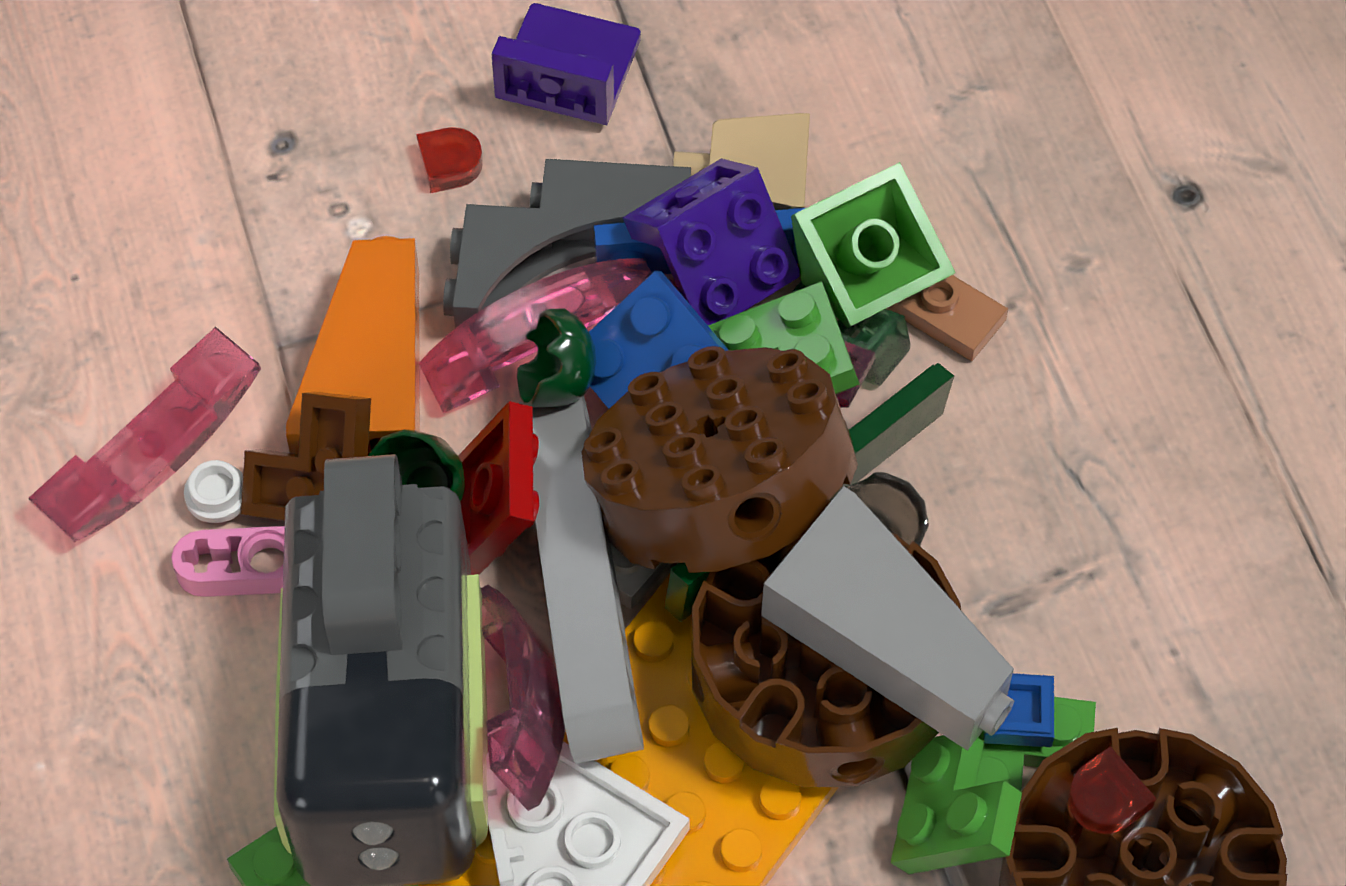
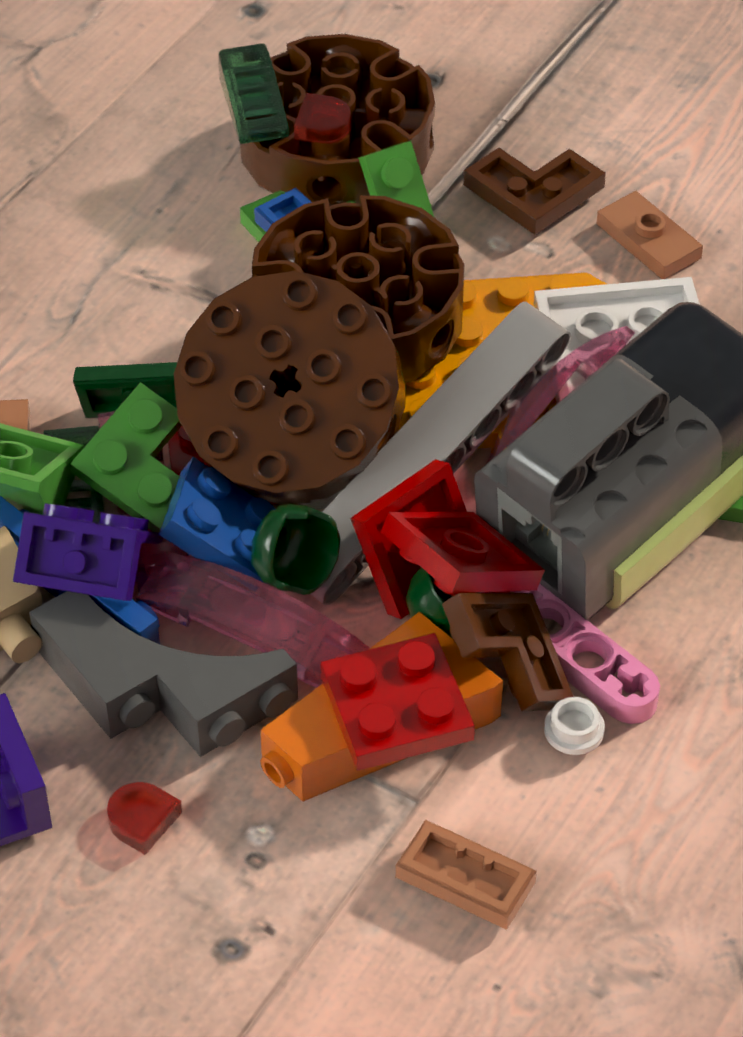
camera: 130 degrees left, 10 degrees down
(154, 443) = (583, 798): clear pink slope -> none
(170, 309) = (465, 874): none -> nougat plate
(336, 332) = (396, 701): none -> red plate
(431, 444) = (461, 552): none -> red plate
(888, 623) = (334, 216): light grey slope -> none
(1213, 779) = (252, 91): none -> clear green slope

